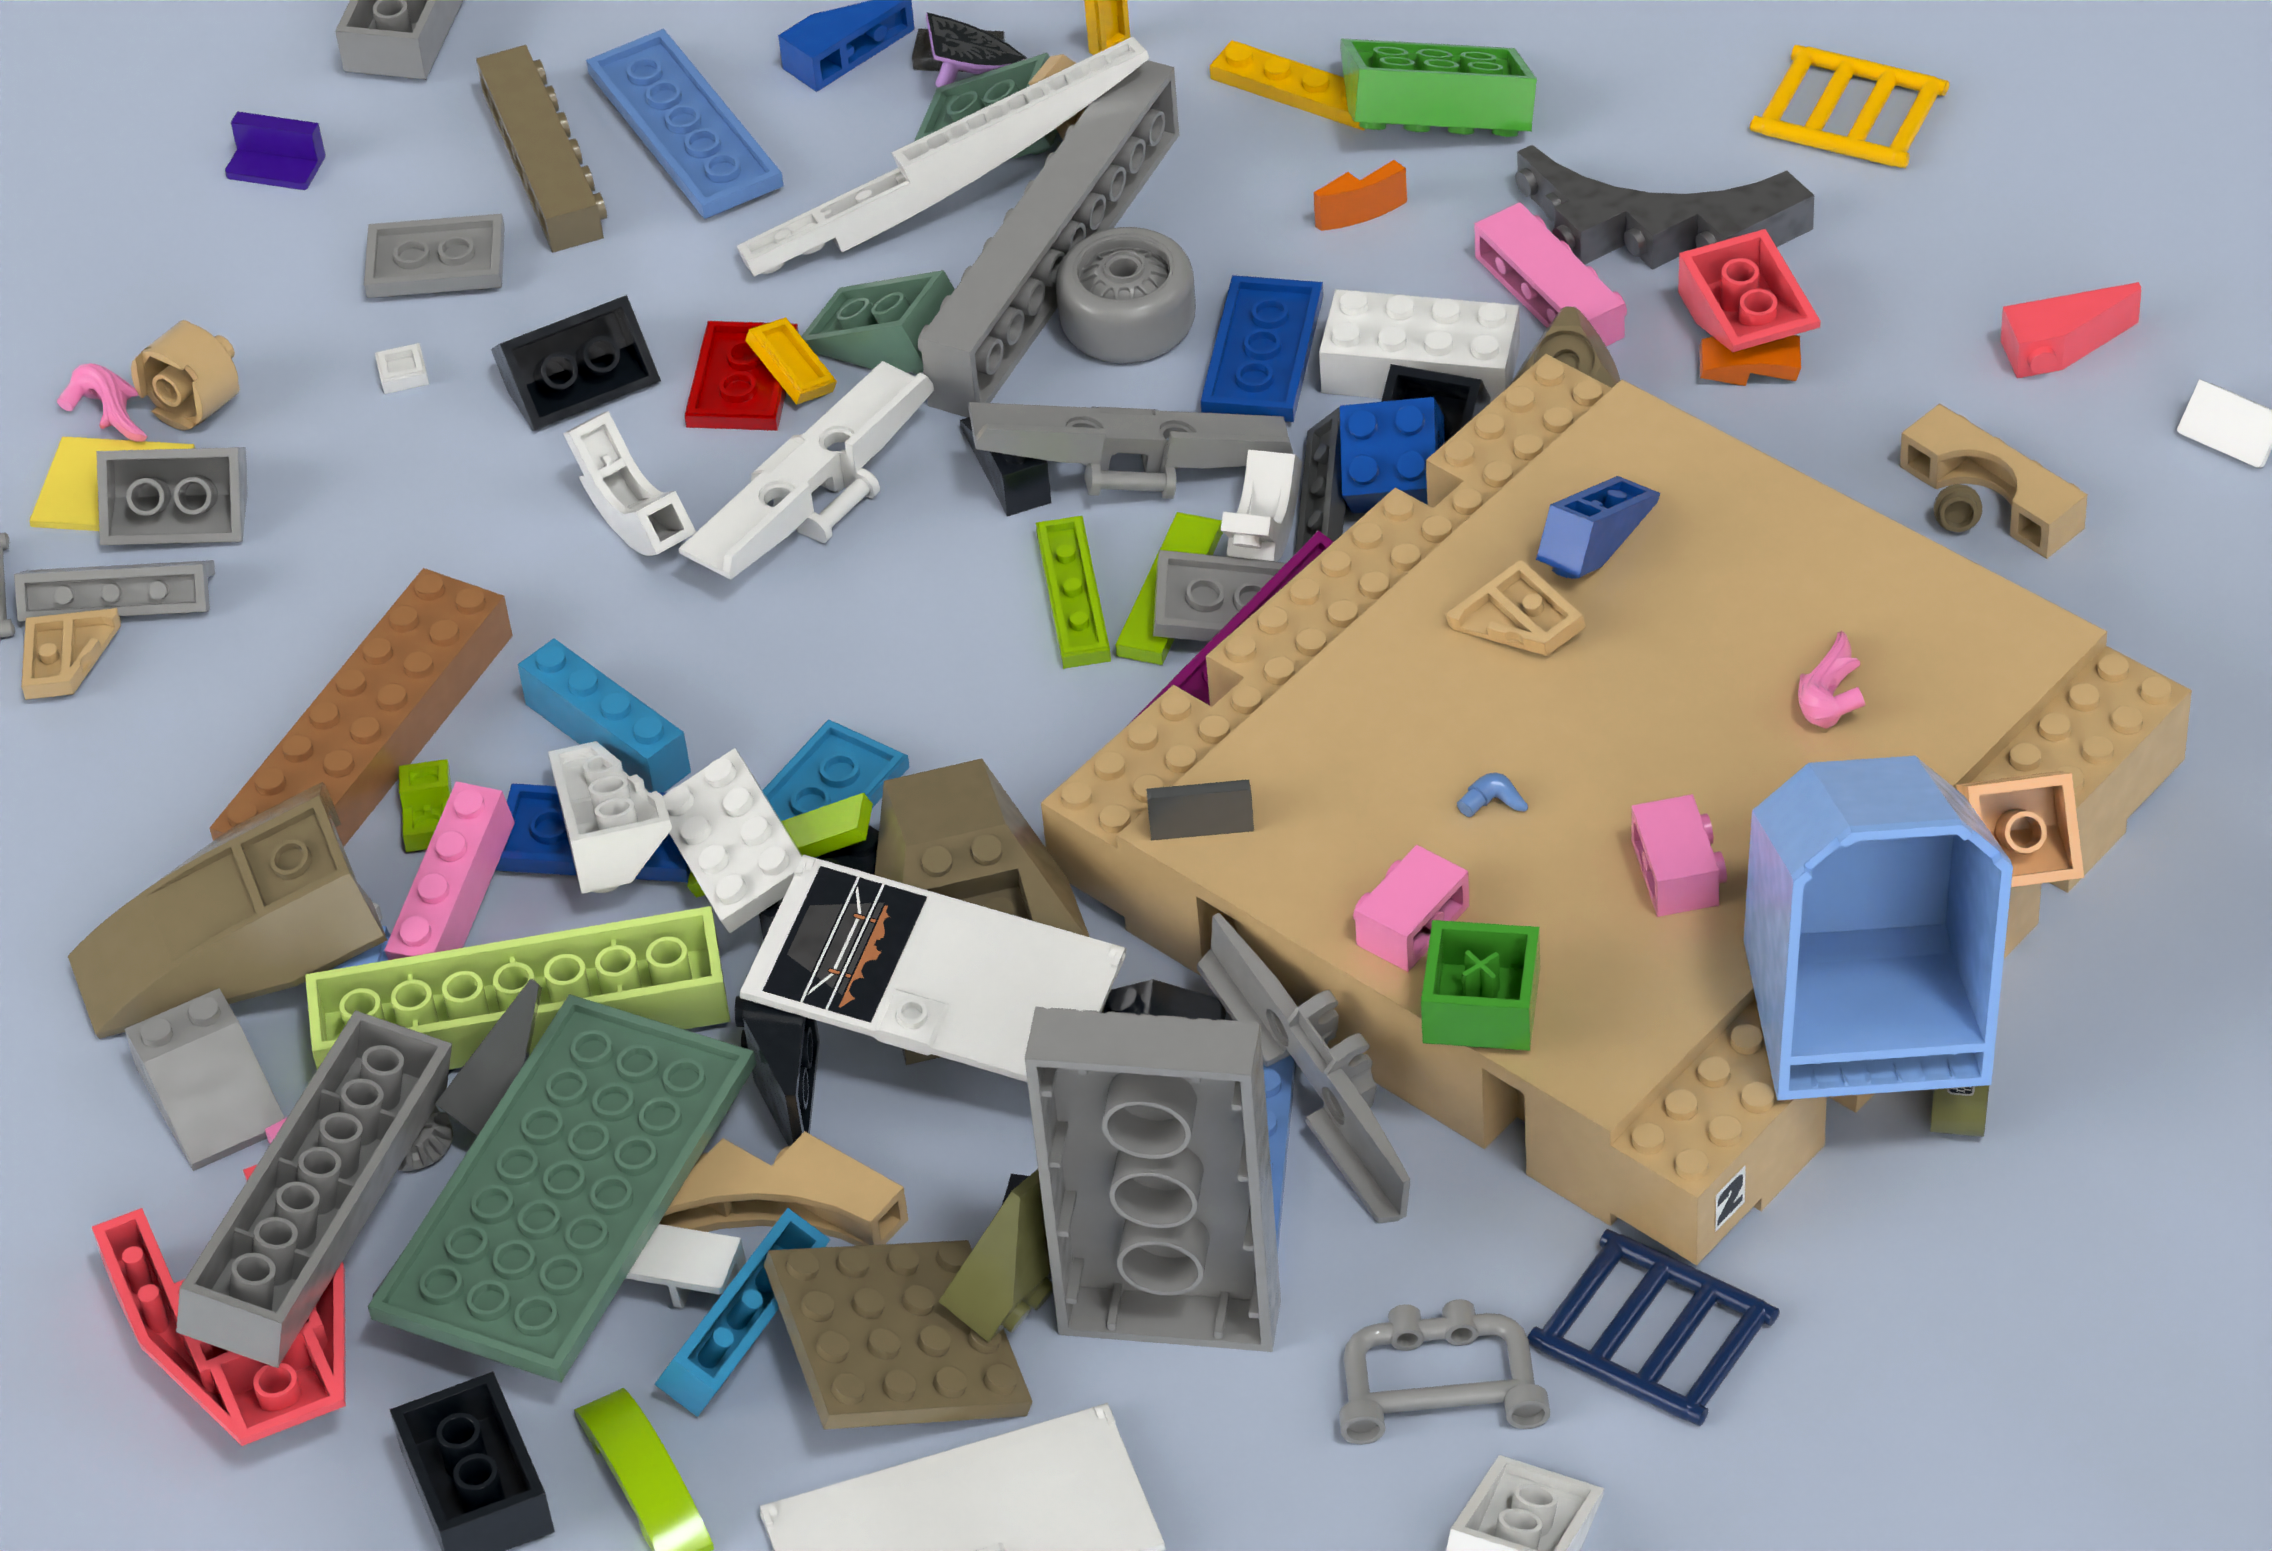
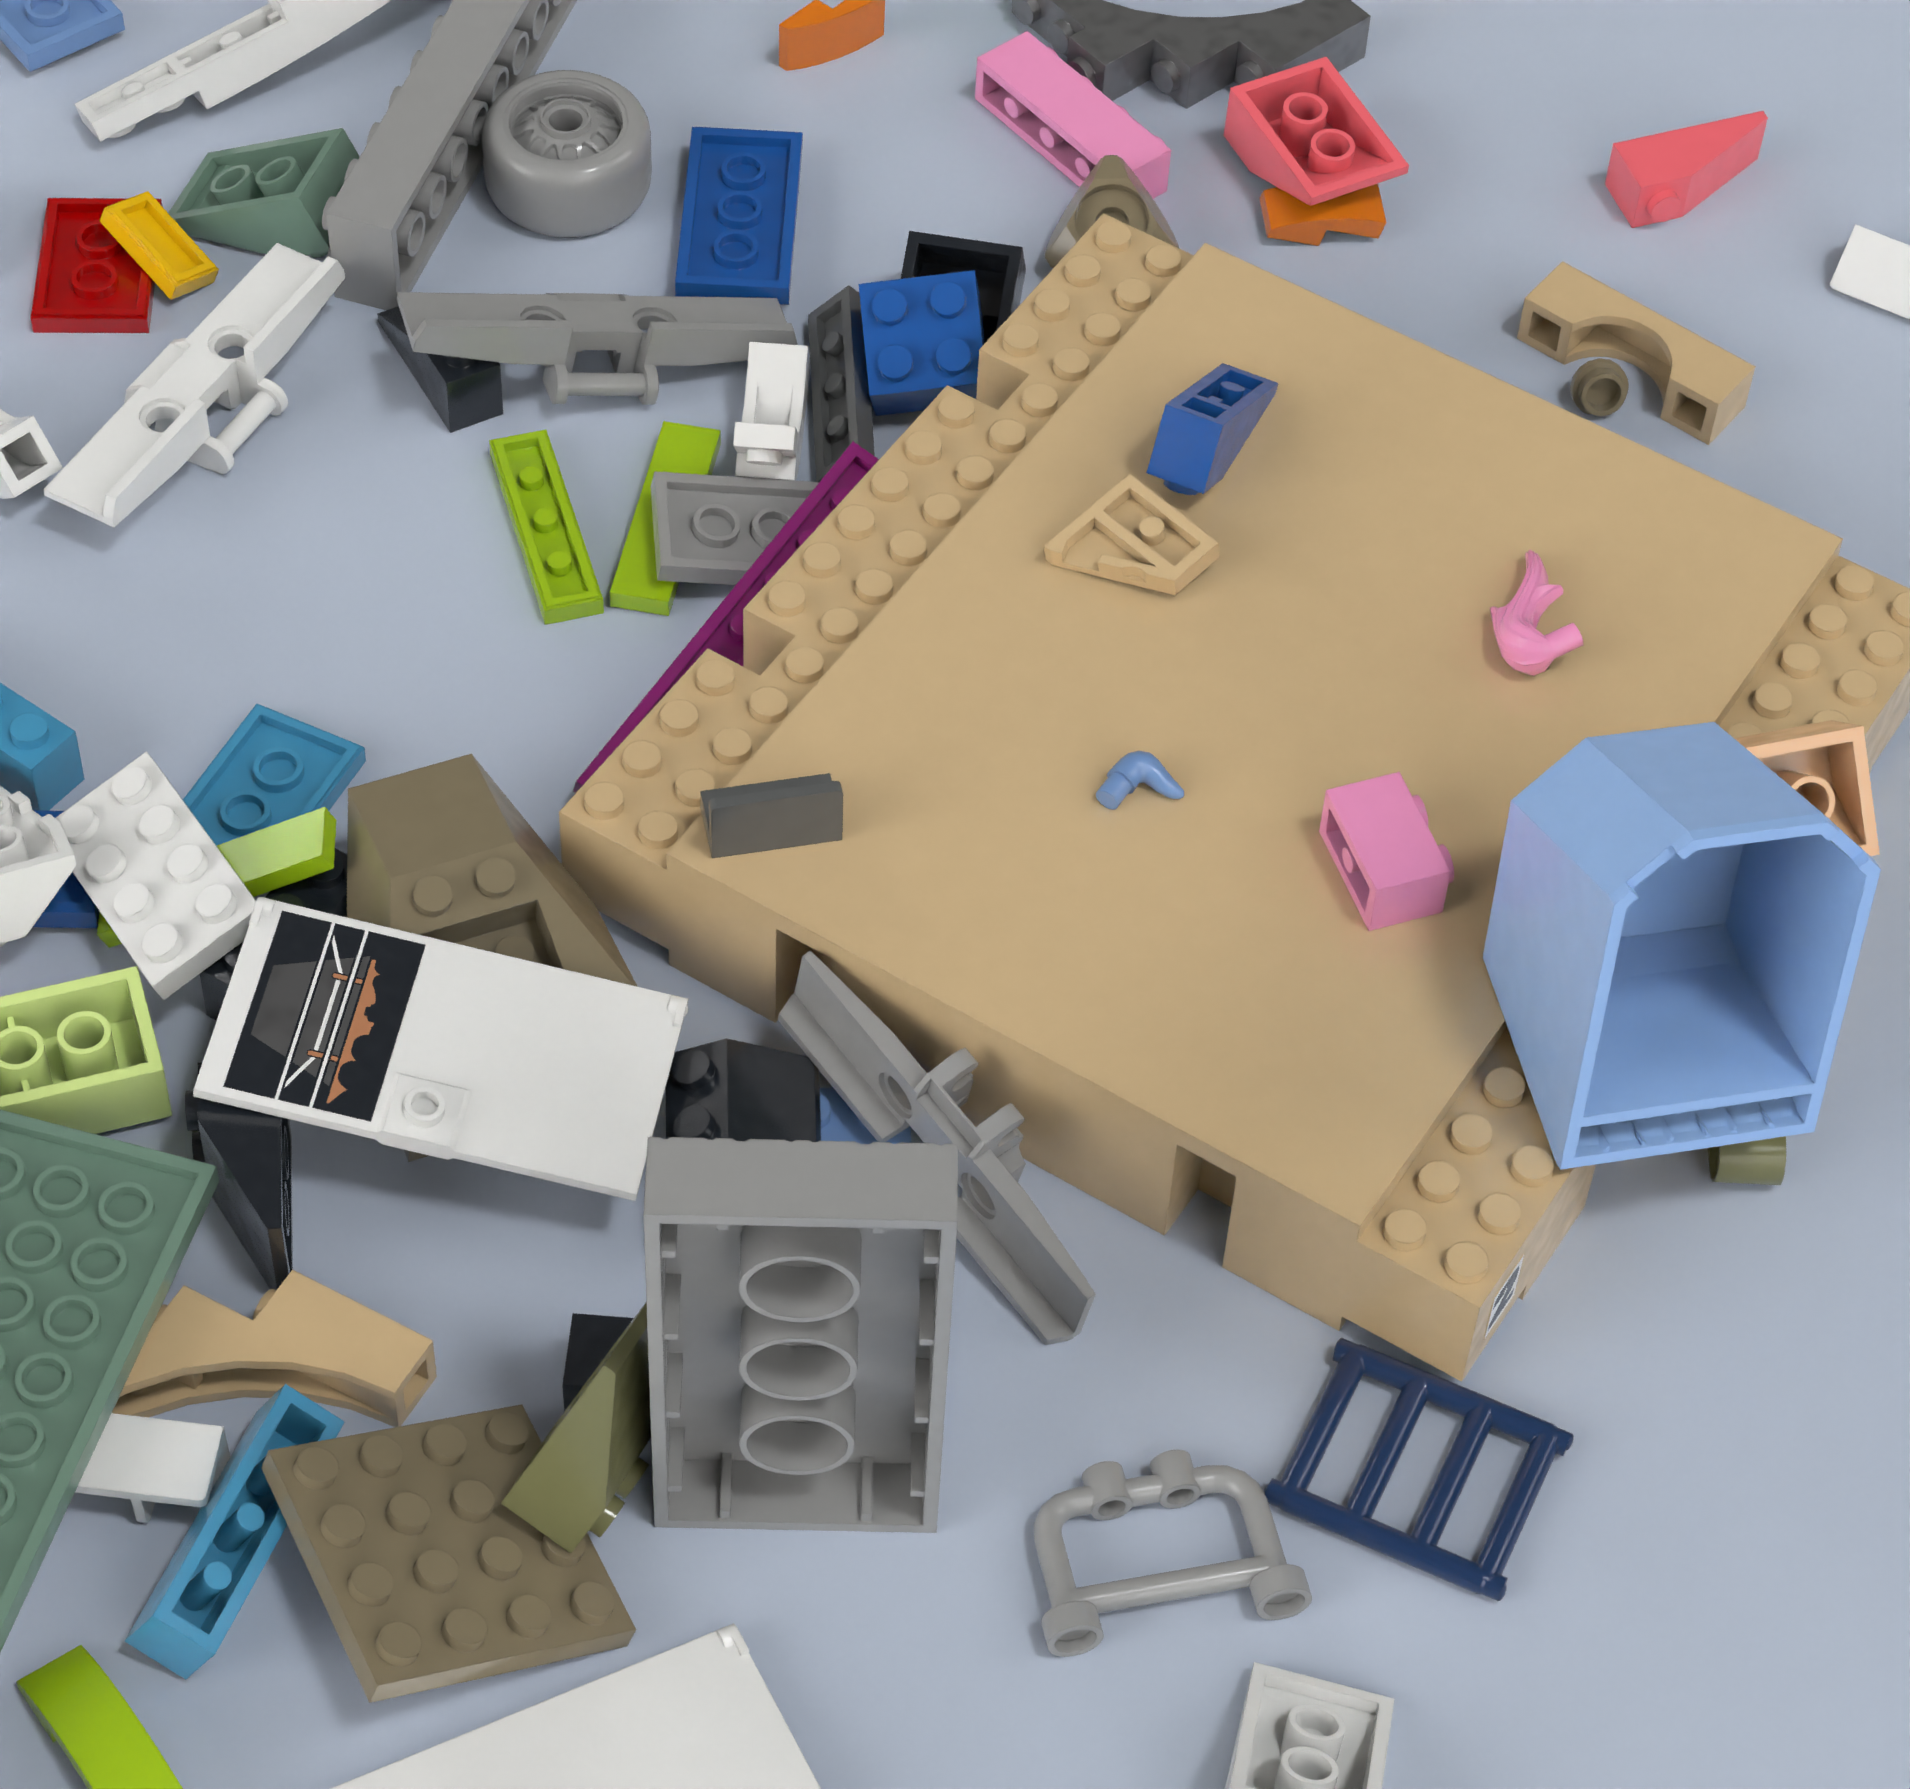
camera: 15 degrees left, 5 degrees up
(1399, 912) = (1063, 936): bright pink brick -> none
(1425, 333) = (884, 191): white brick -> none
(1480, 985) = (1174, 1039): bright green brick -> none

